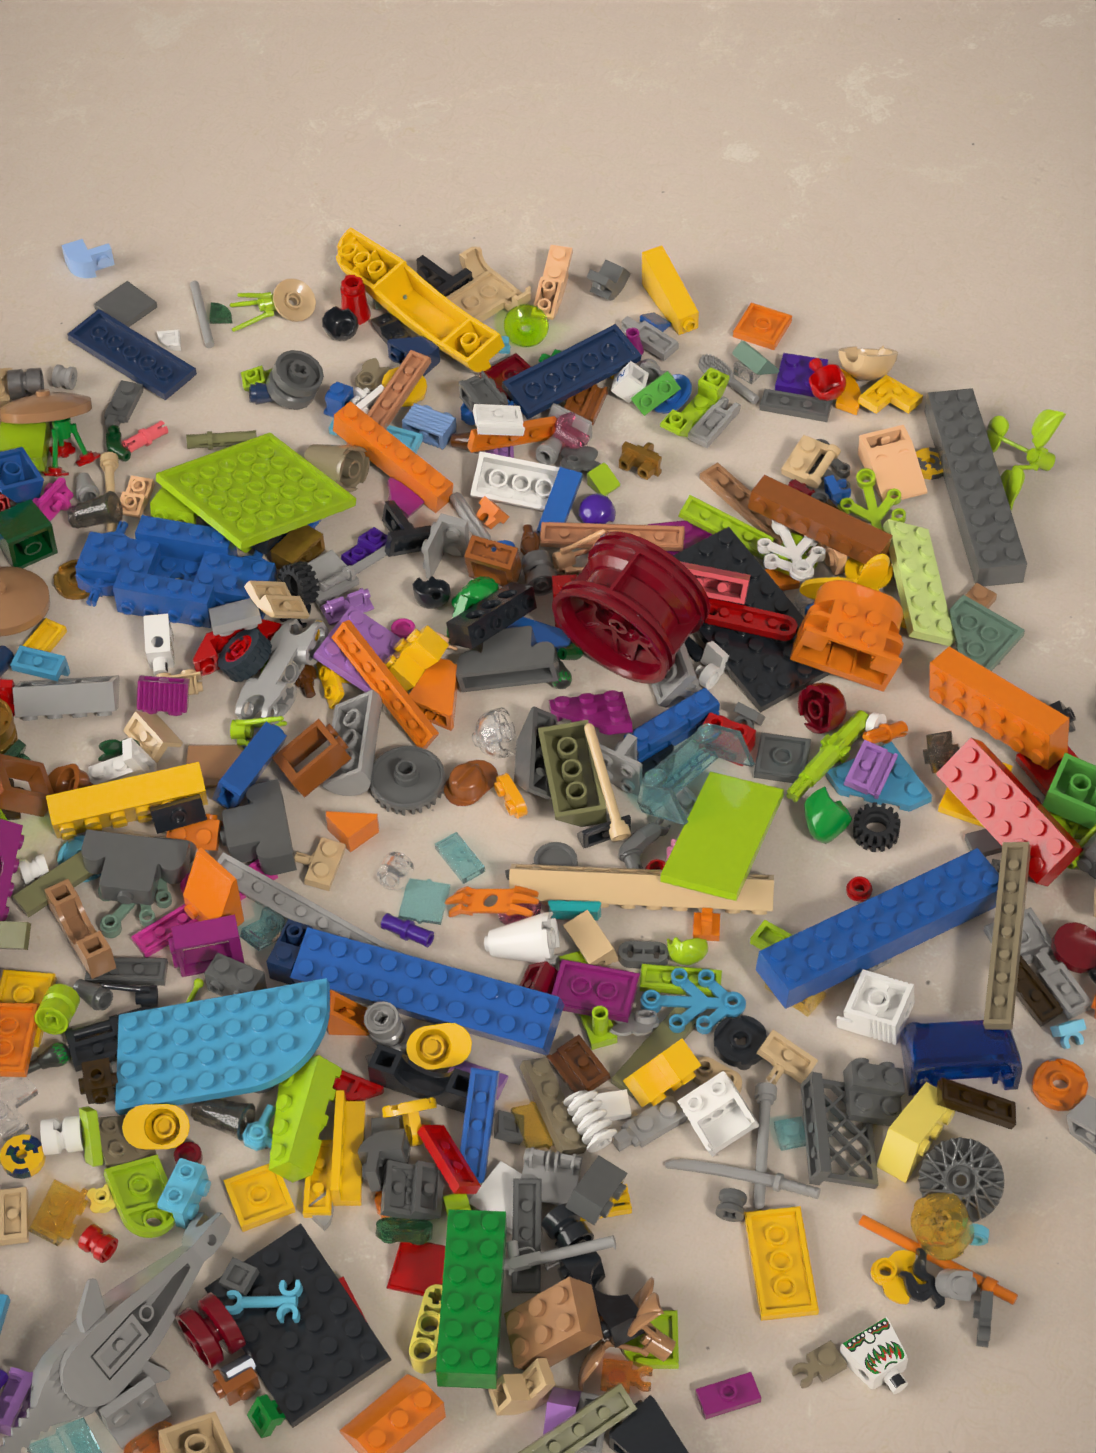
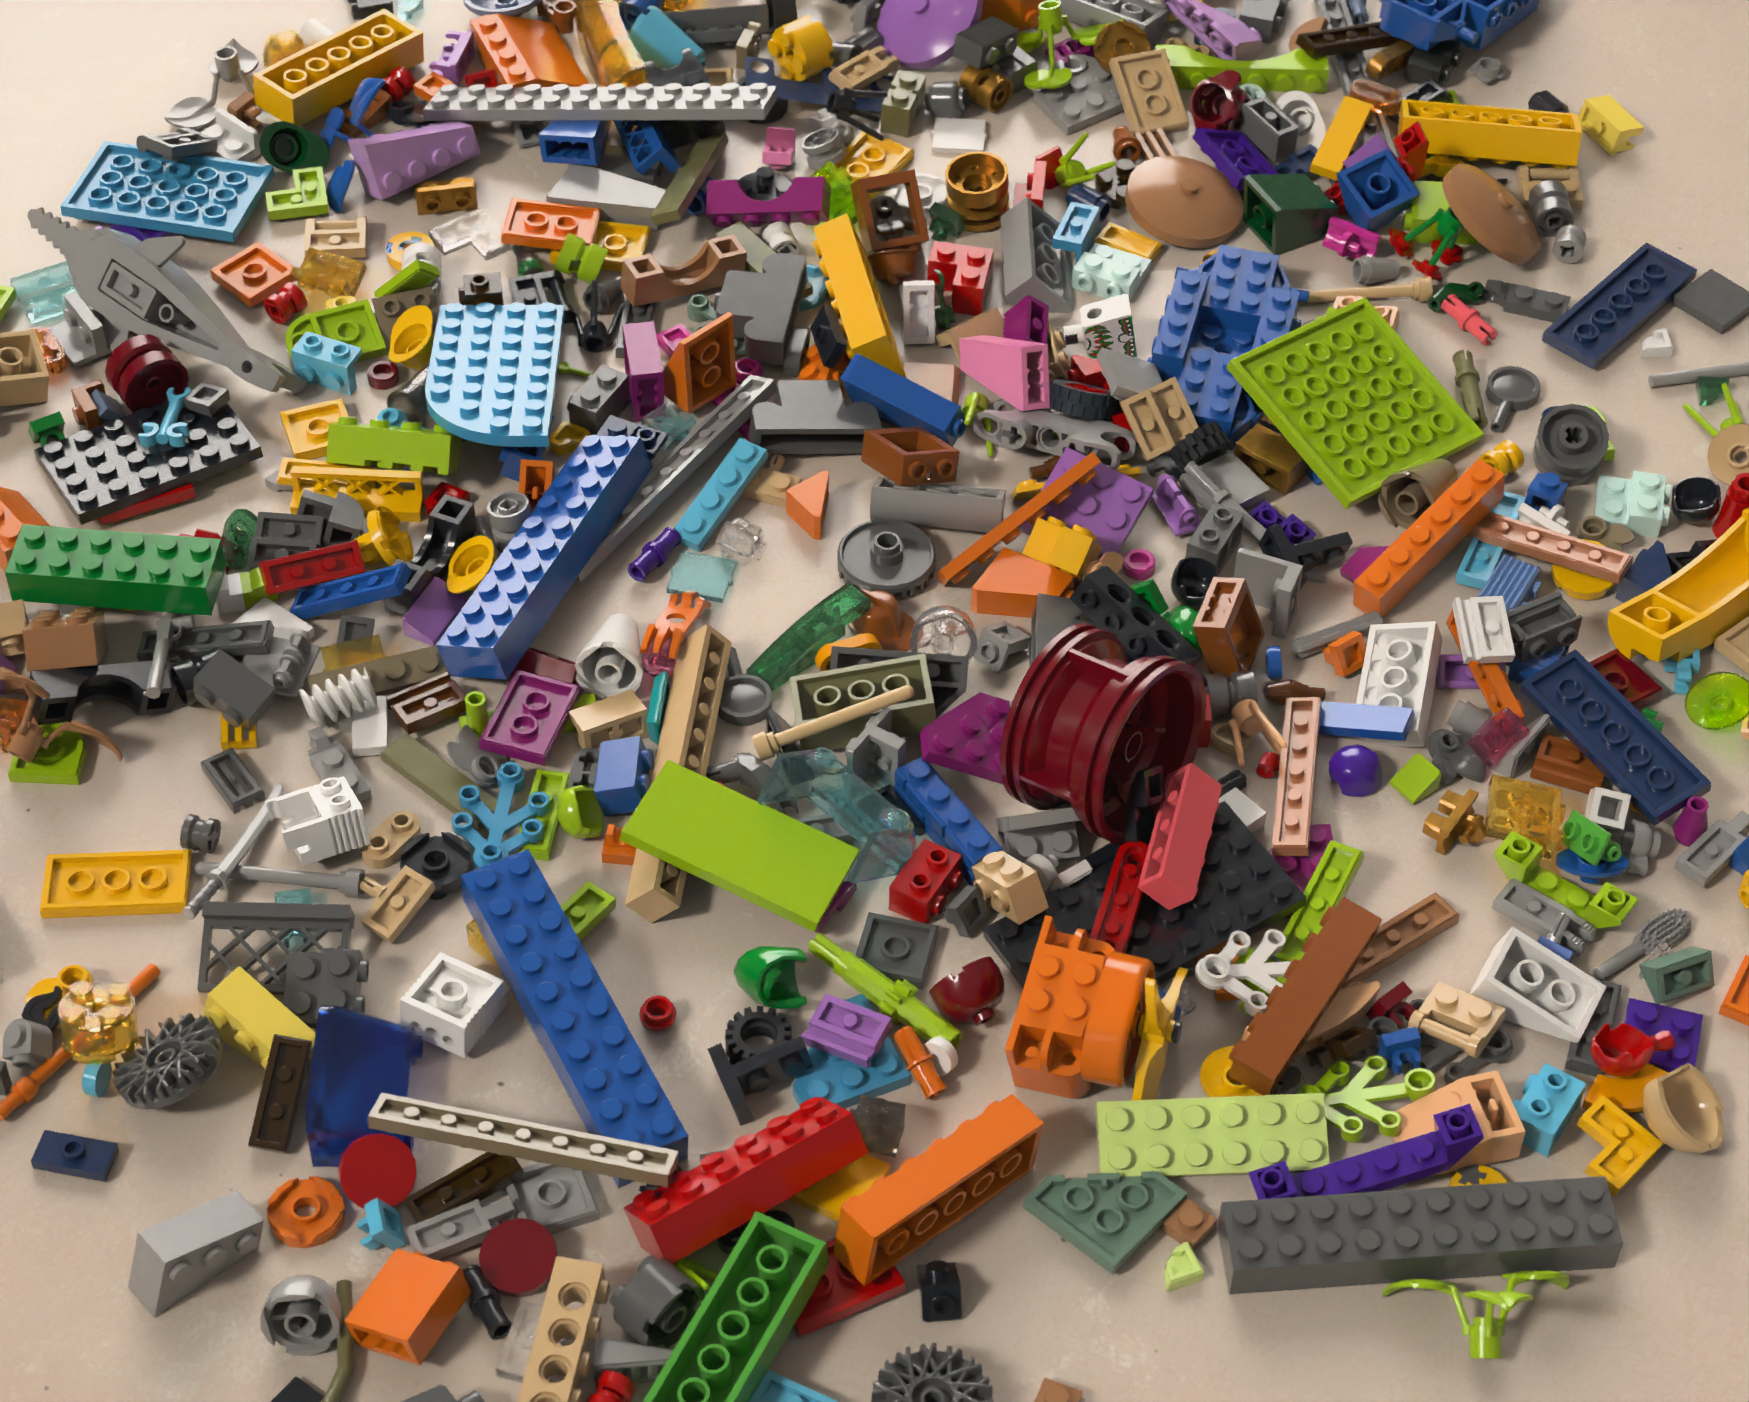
camera: 90 degrees right, 5 degrees down
(53, 1278) = (253, 274): none -> orange plate
(82, 648) = (1109, 272): none -> light aqua plate
(82, 738) = (966, 274): none -> red brick
(96, 511) = (1325, 282): clear smoke plant -> none
(212, 698) = (1009, 368): none -> bright pink slope
(221, 418) = (1511, 390): none -> dark grey piece
(301, 425) = (1505, 457): none -> yellow wheel
(339, 358) = (1634, 502): none -> light aqua plate
(344, 887) = (720, 493): none -> medium azure plate
(388, 581) = (1217, 536): none -> dark grey brick
(460, 857) = (761, 608): clear light blue plate -> none
(493, 699) = (997, 643): none -> light grey bracket
(499, 818) = (799, 644): none -> clear green slope
(637, 421) = (1526, 809): none -> clear yellow plate
(649, 922) = (622, 774): none -> brick
(667, 1070) = (389, 769): yellow brick -> none
(671, 1206) = (243, 797): none -> dark grey tile
(736, 683) = (1010, 886): none -> tan brick
(744, 417) = (1552, 942): none -> piece
(778, 425) = (1538, 987): none -> white slope
(865, 419) = (1548, 1107): none -> medium azure brick
(911, 824) = (758, 1072): none -> black bracket
(930, 500) = (1381, 1168): none -> dark purple slope
(1011, 603) = (1182, 1268): none -> yellowish green tile
(1032, 1035) = (377, 1168): none -> red tile
(1040, 1241) = (75, 1155): none -> dark blue plate

